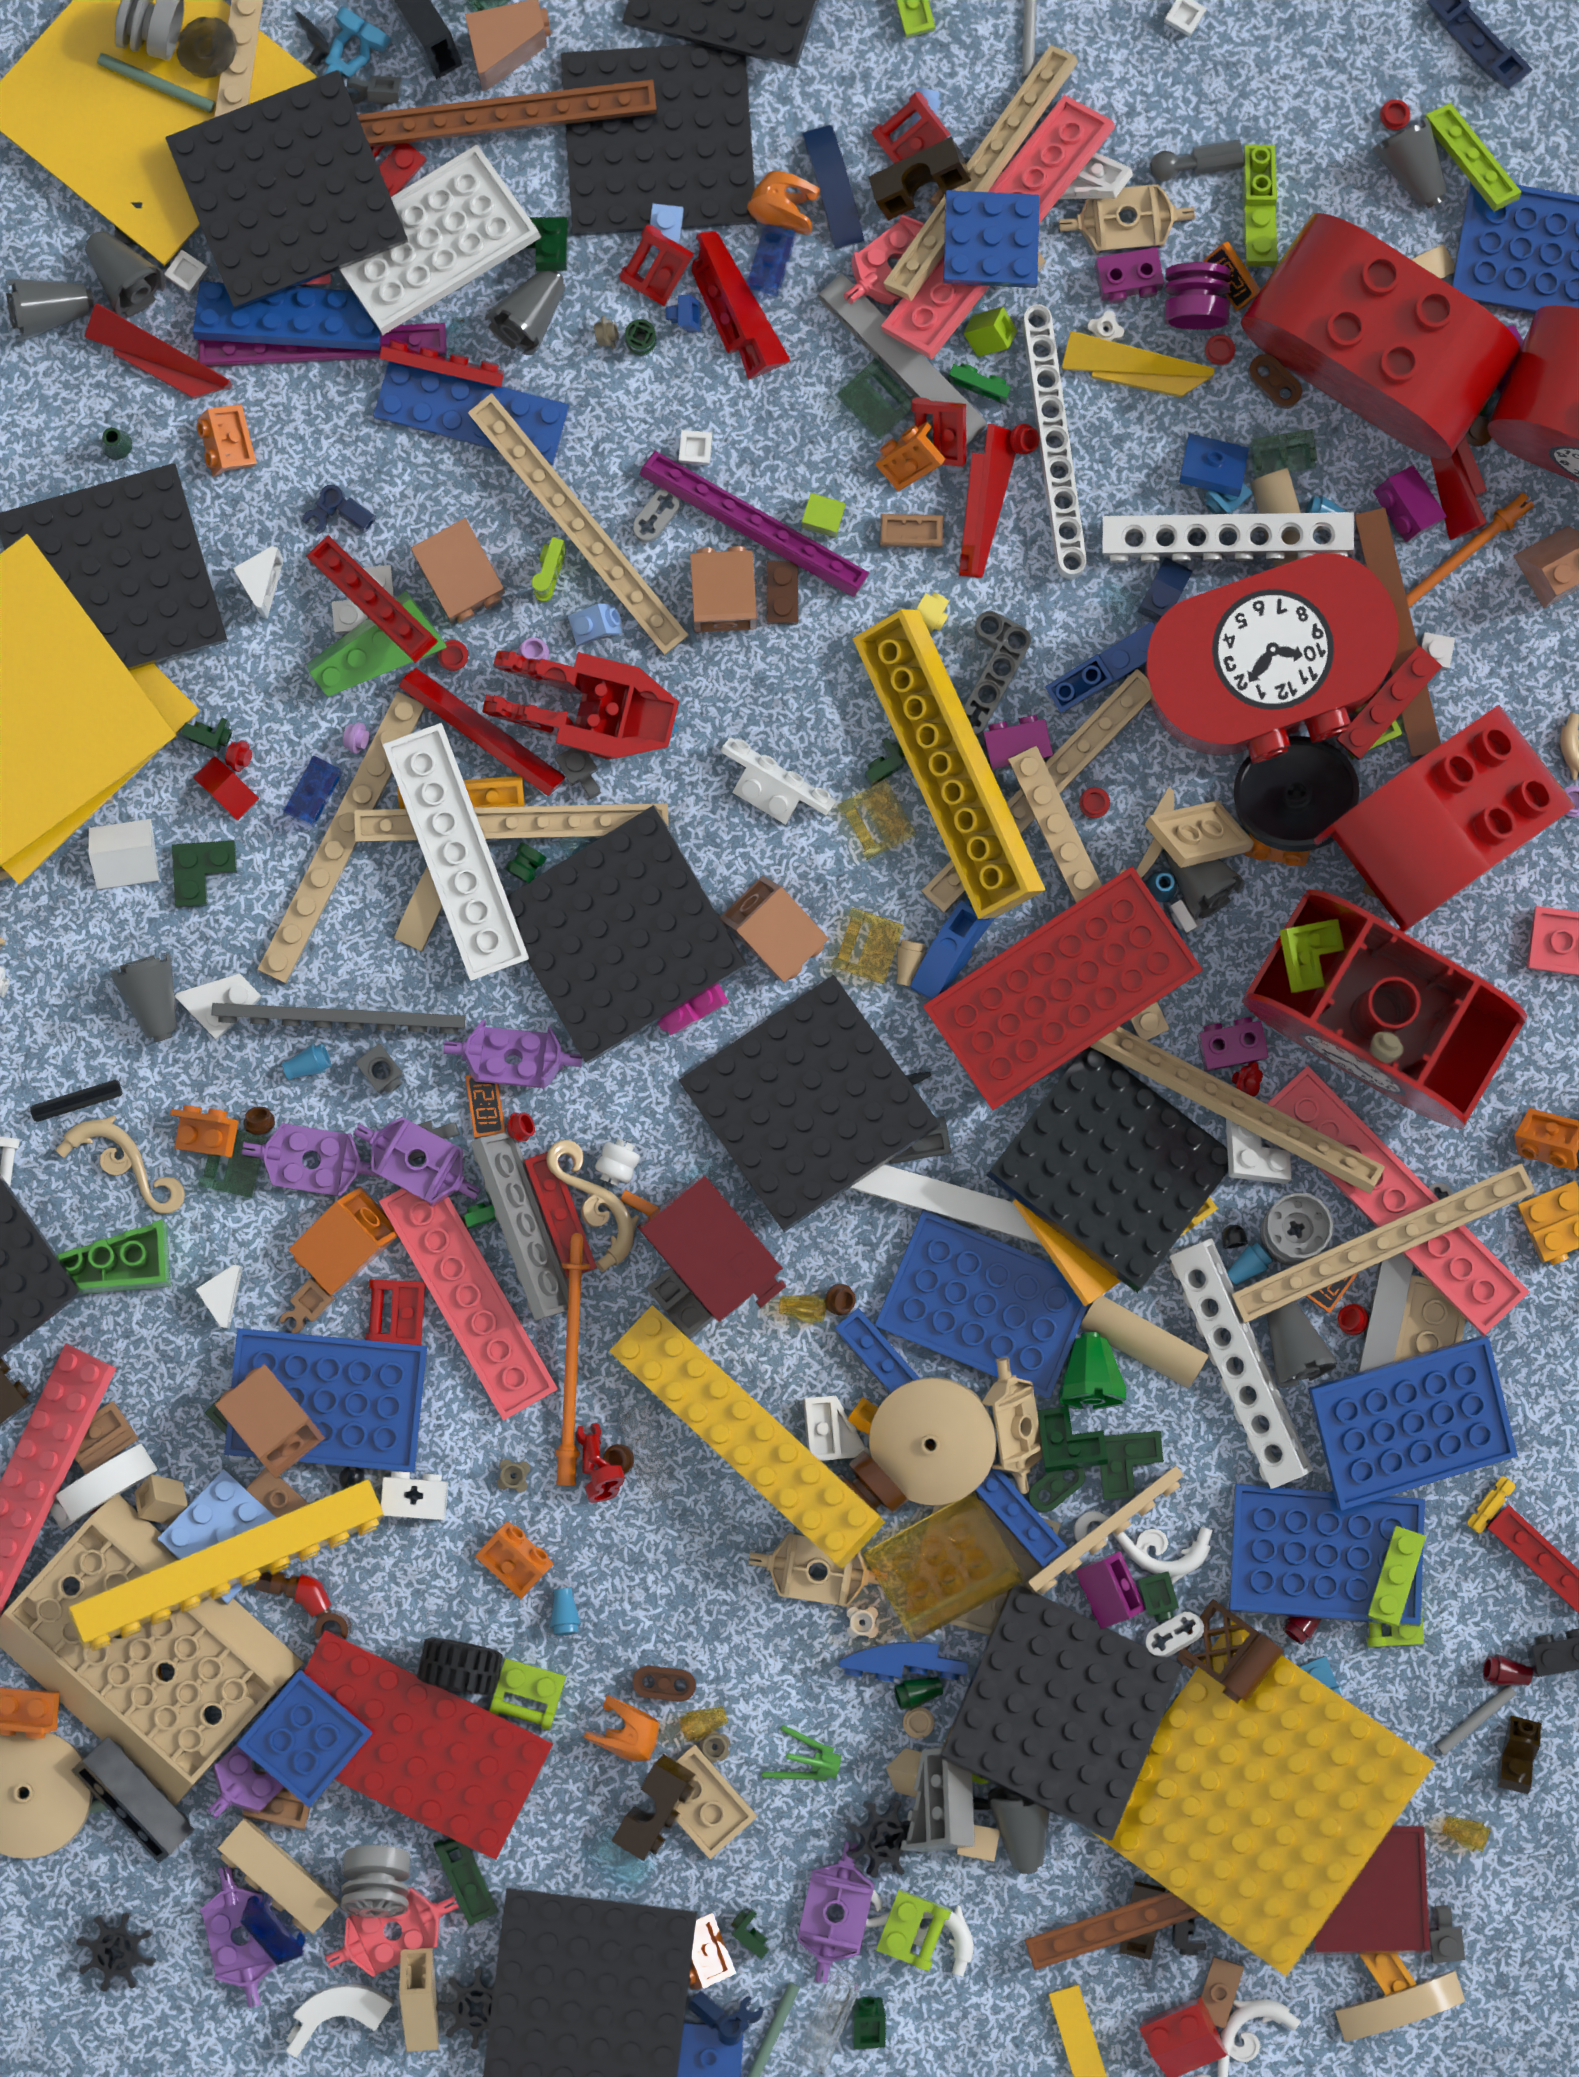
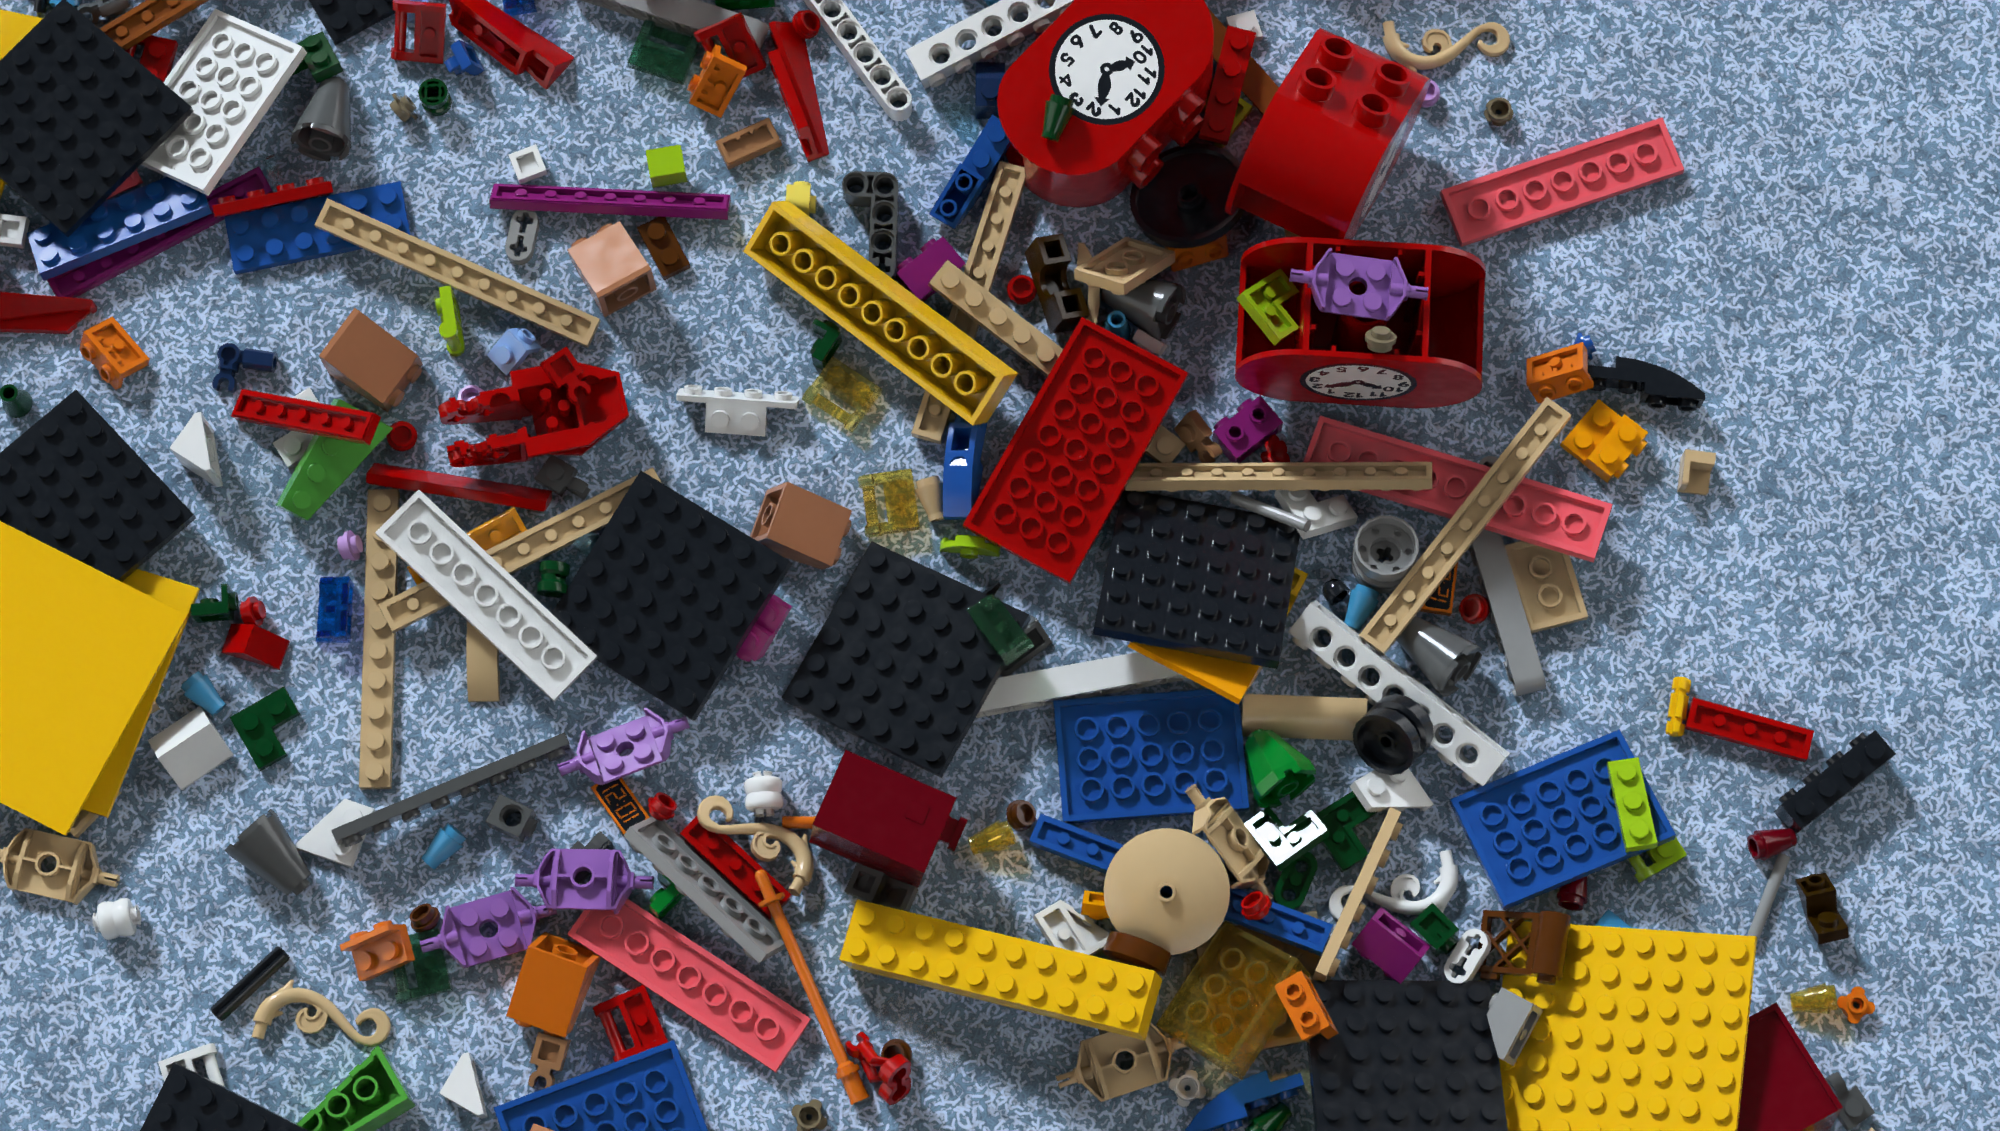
camera: 20 degrees left, 10 degrees down
(158, 810) = (203, 693): none -> dark azure cone
(627, 677) = (564, 370): none -> red plate
(905, 1125) = (1000, 628): none -> clear green hinge
(919, 1025) = (969, 546): none -> lime plate
(1000, 1612) = (1305, 1007): none -> orange bracket
(1005, 1495) = (1255, 905): none -> red plate
(1129, 795) = (1048, 265): none -> dark brown arch
(1180, 1716) = (1511, 1023): none -> light grey slope
(1183, 1027) = (1196, 435): none -> medium nougat plate
(1188, 1447) = (1398, 791): none -> white wing
(1202, 672) = (1057, 115): none -> dark green cone
(1212, 1135) = (1270, 511): none -> light grey bar
(1213, 1402) = (1393, 734): none -> black wheel
(1412, 1422) = (1573, 667): blue plate -> none
(1418, 994) = (1383, 281): none -> medium lavender plate
(1495, 1849) = (1854, 1014): none -> orange plate

